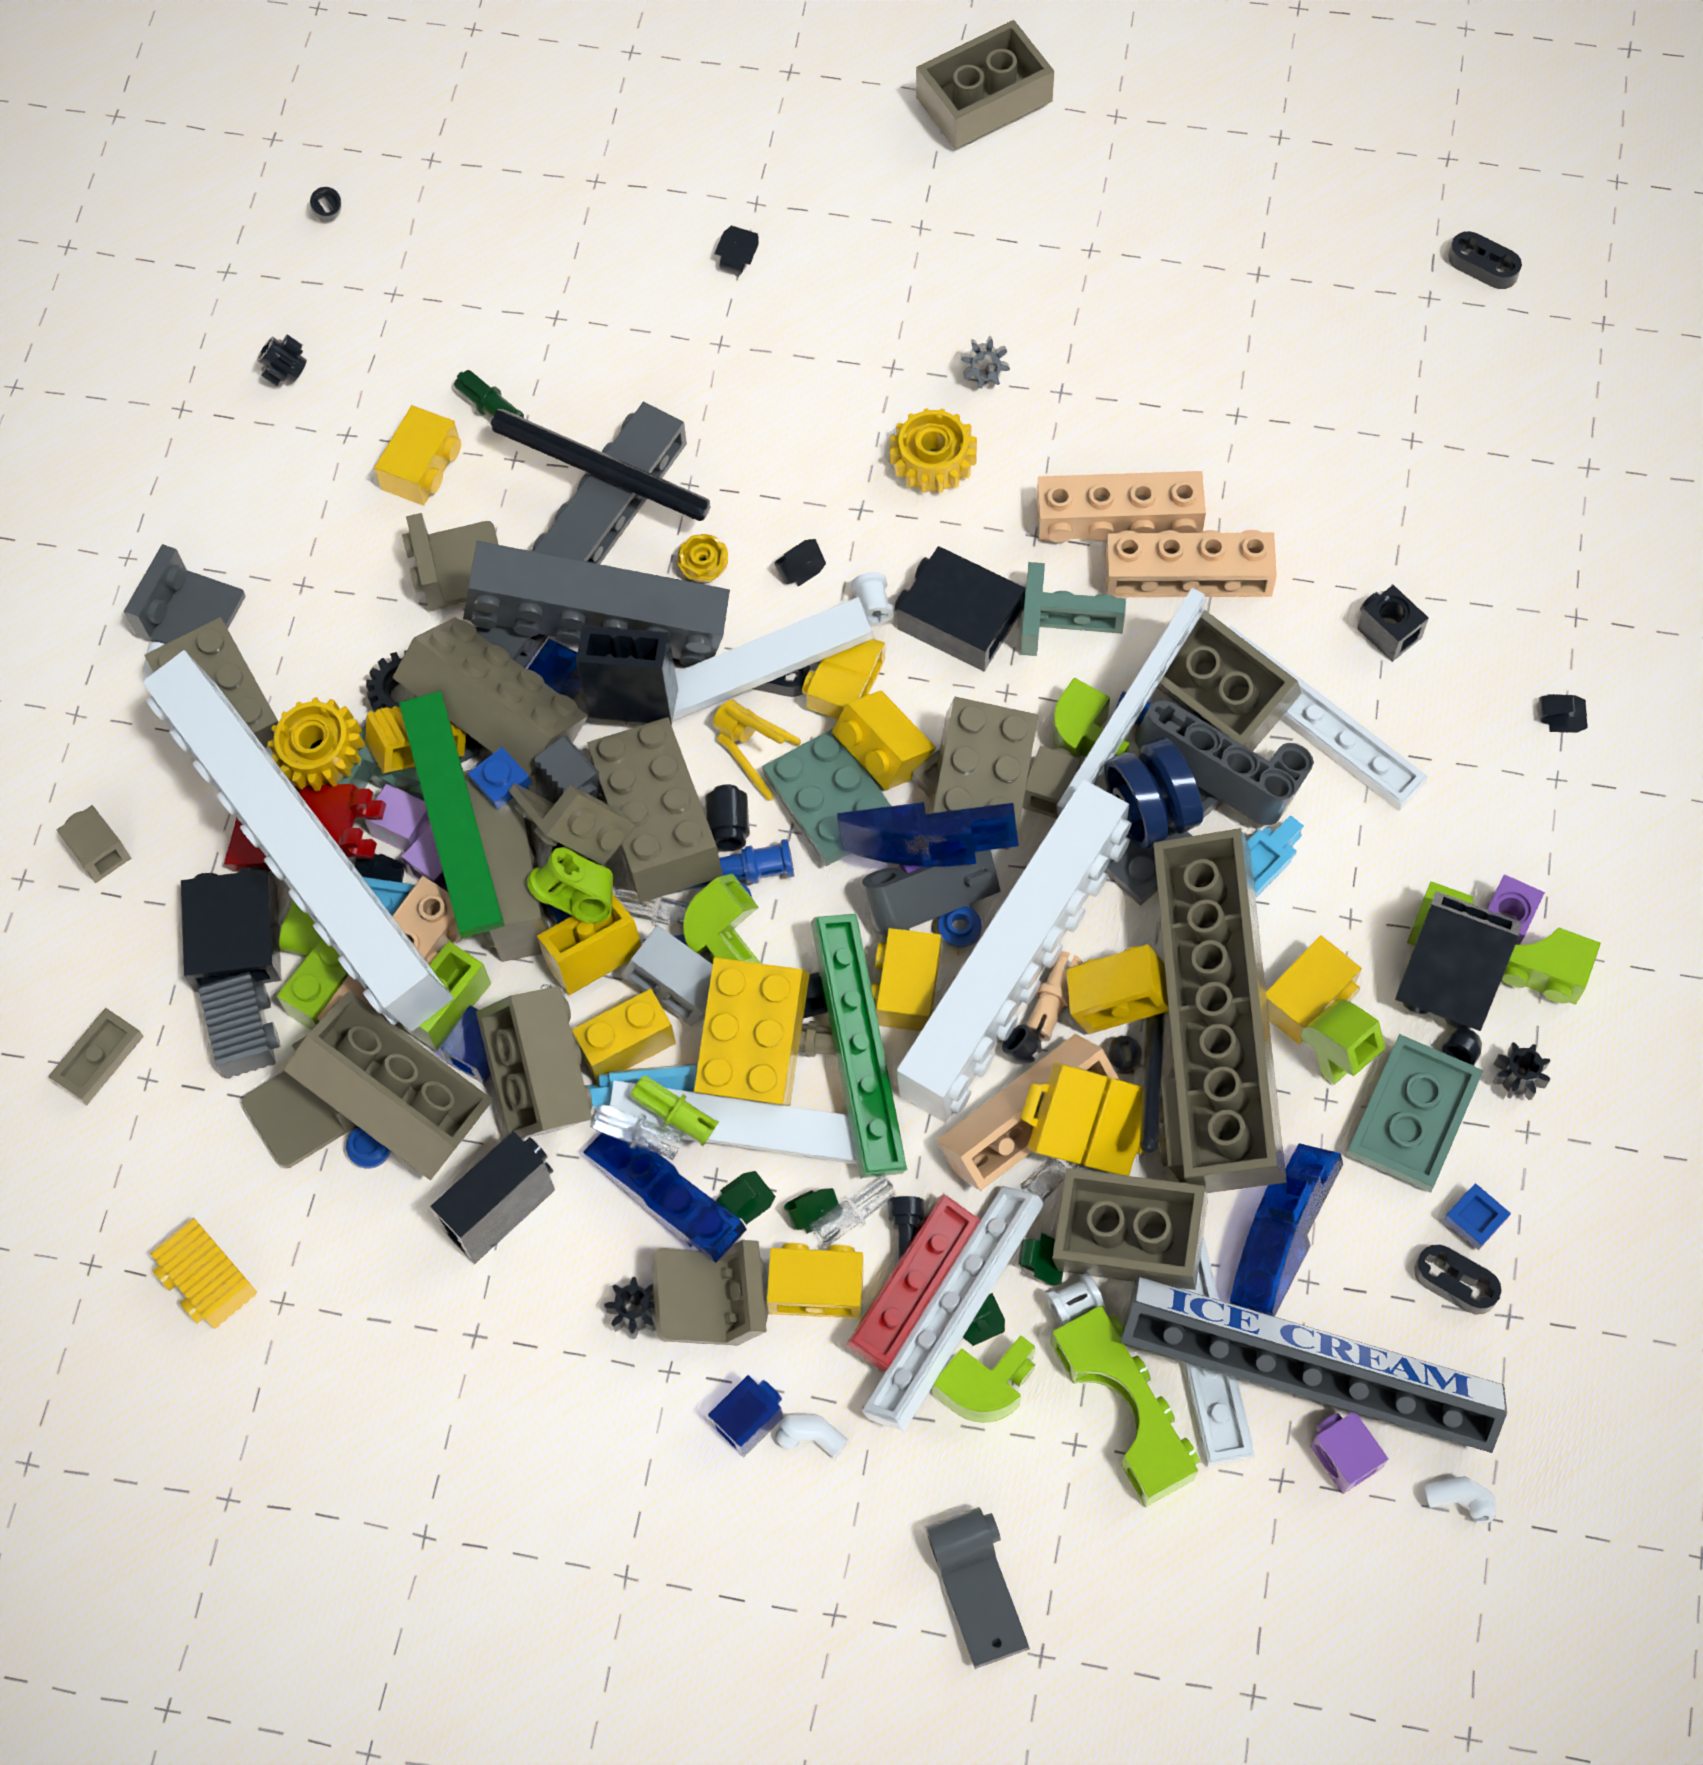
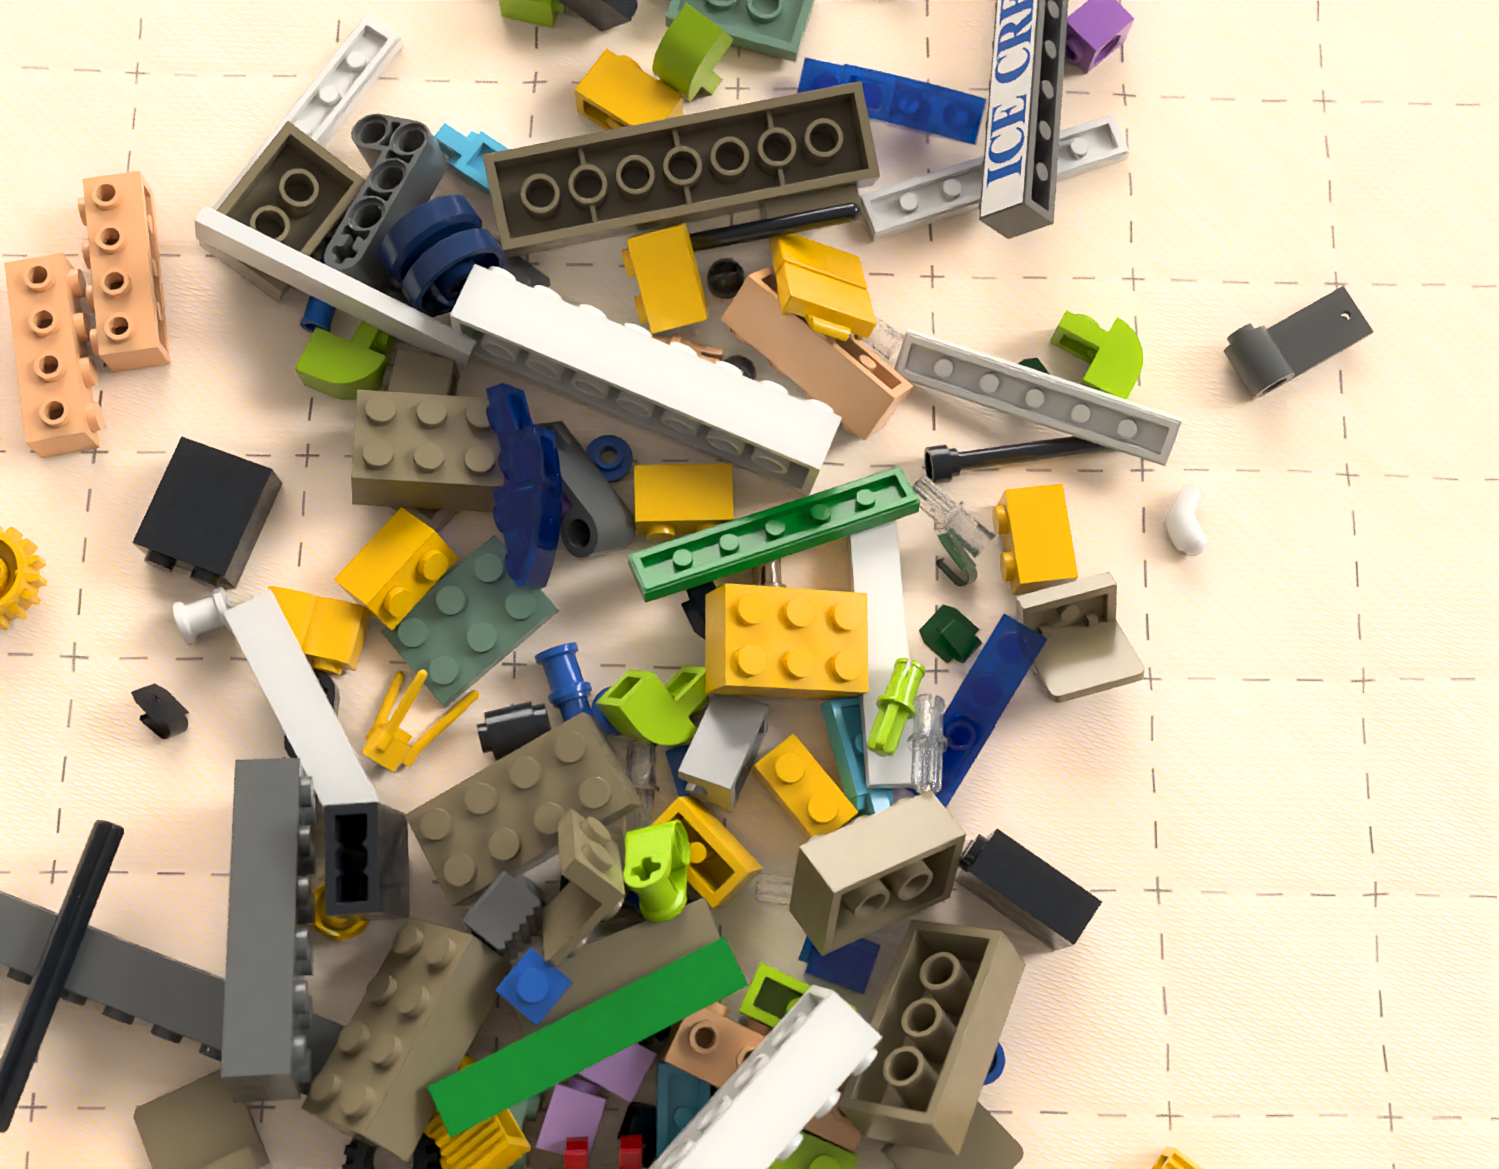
camera: 110 degrees left, 10 degrees up
(558, 668) = (345, 971): clear blue brick -> none
(631, 1320) = (1117, 719): black gear -> none
(702, 547) = (149, 824): yellow plate -> none
(747, 1414) = (1187, 583): clear blue brick -> none
(912, 1282) = (1018, 441): tile -> none
(1037, 1257) = (964, 325): dark green piece -> none
(1065, 611) = (199, 402): sand green bracket -> none
(1084, 1288) = (1000, 288): white bush -> none
(1094, 1354) = (1136, 198): lime arch -> none
(1130, 1228) = (927, 234): dark tan brick -> none
(1392, 638) = (179, 42): black brick -> none

